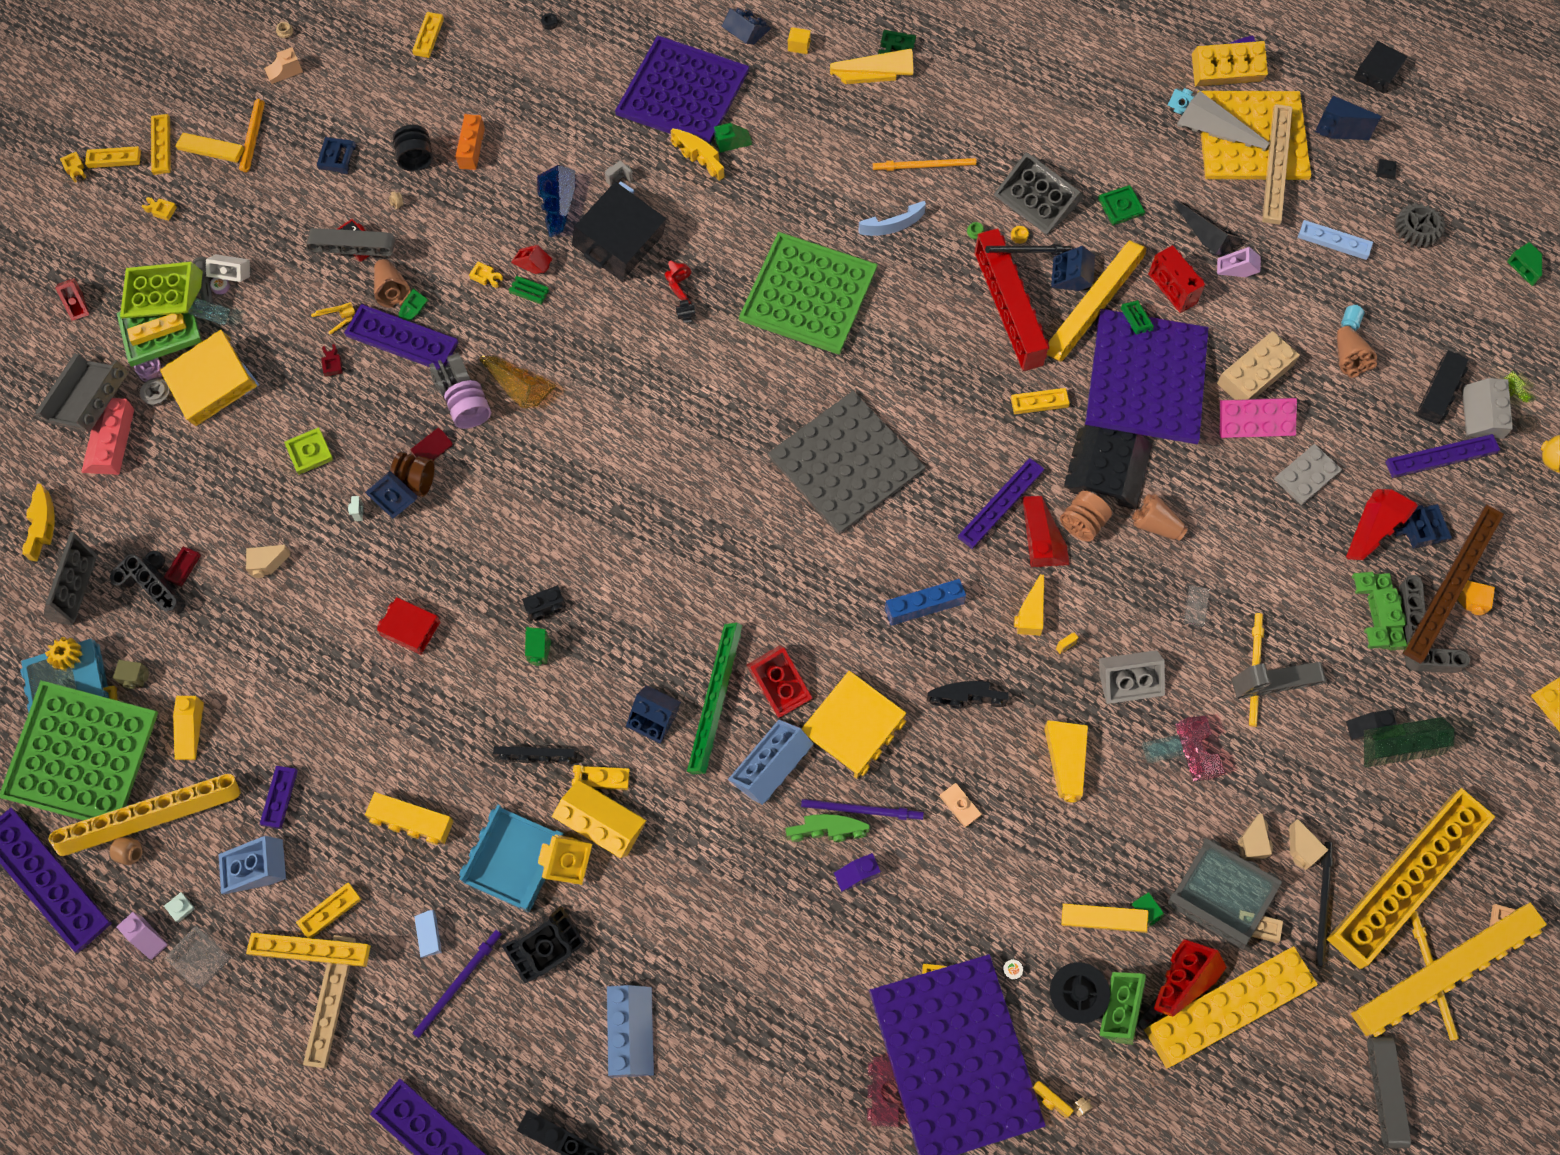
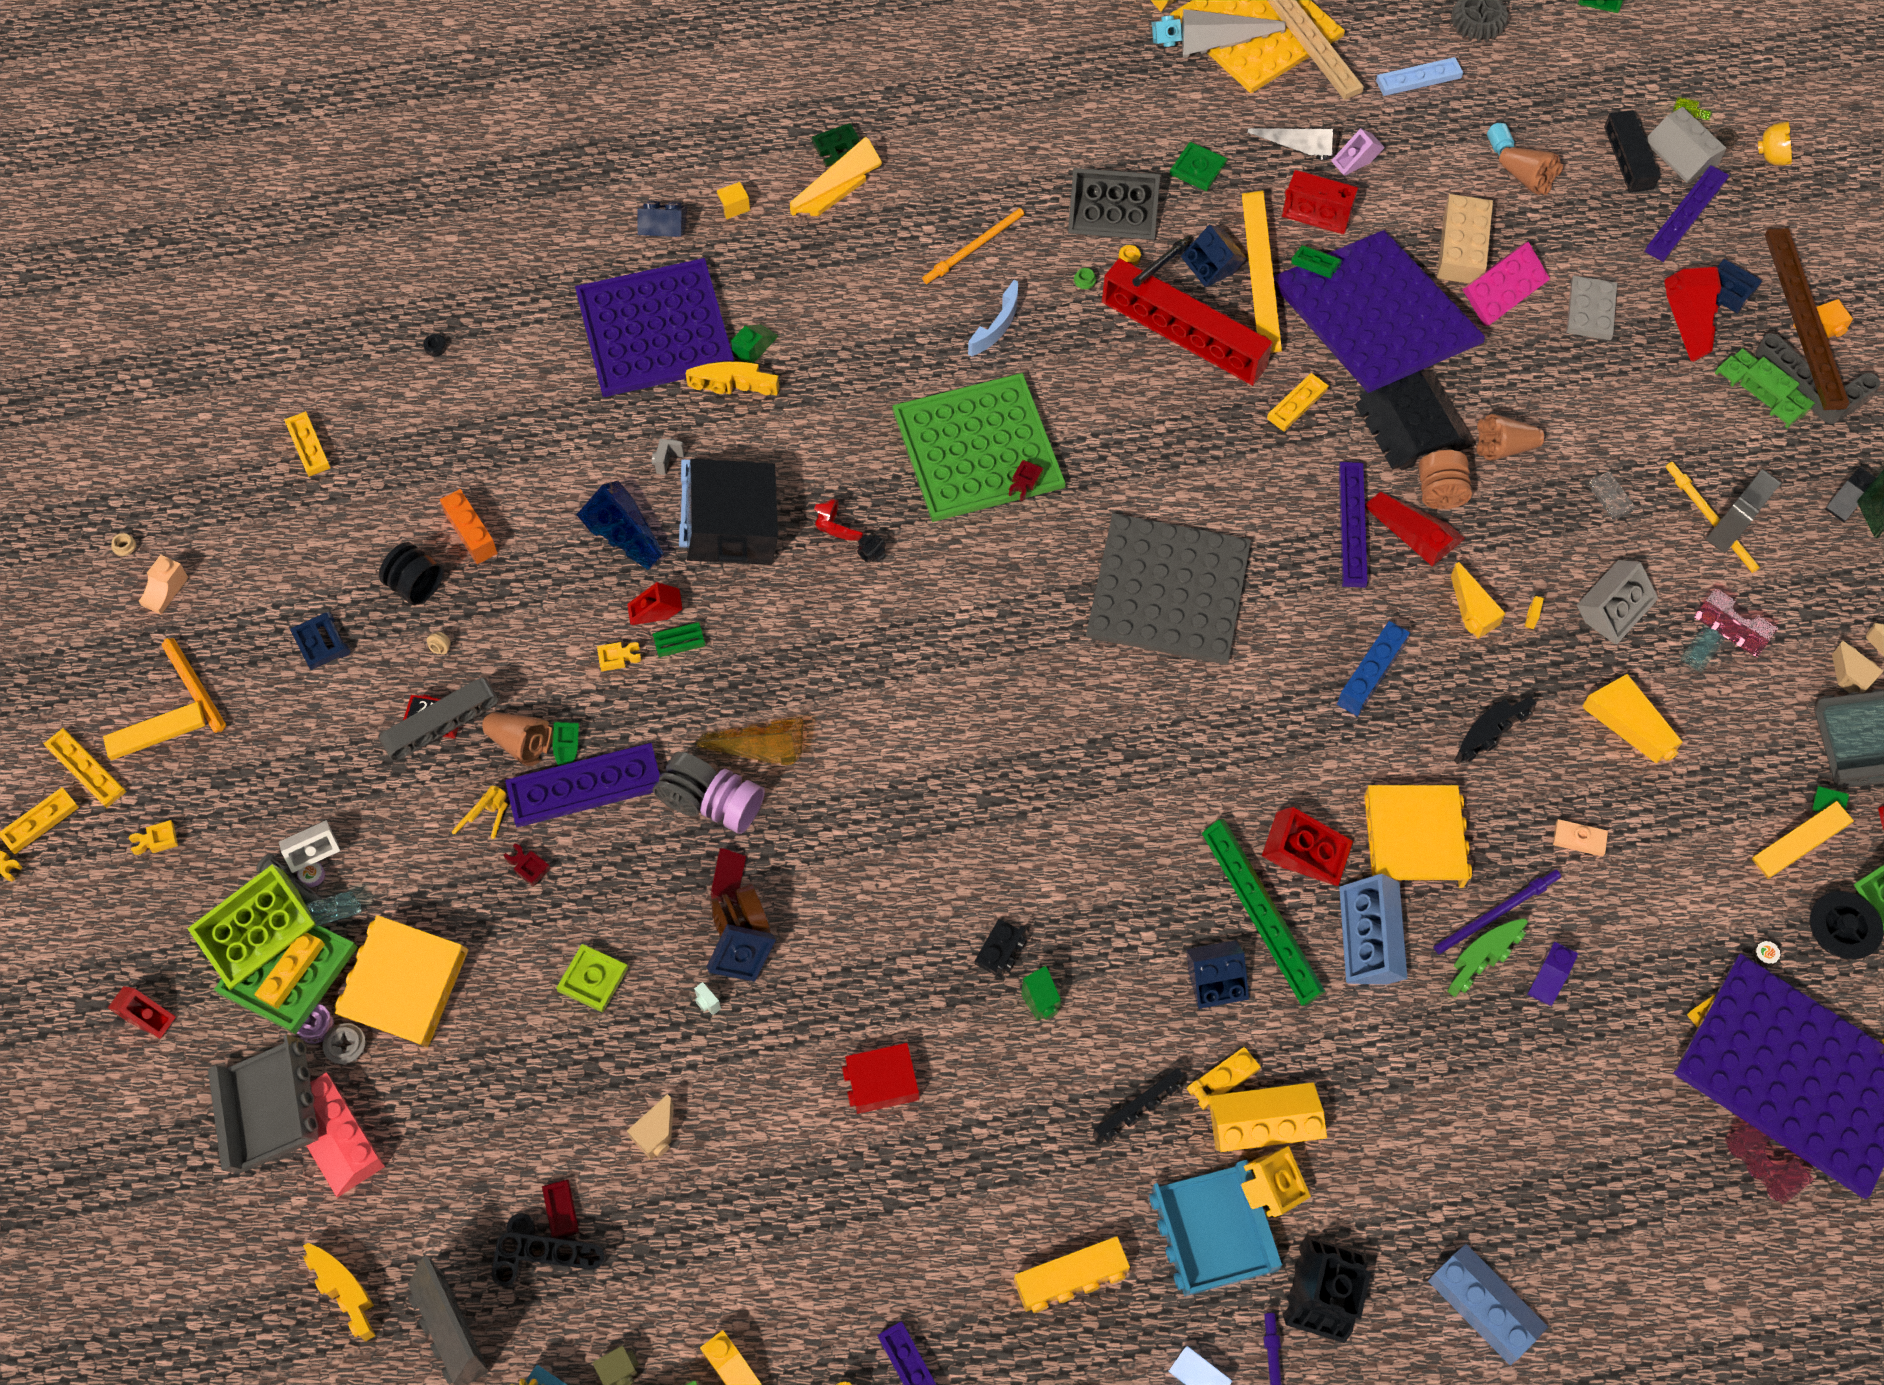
camera: 40 degrees left, 5 degrees down
(815, 330) = (1025, 478): none -> dark red plate

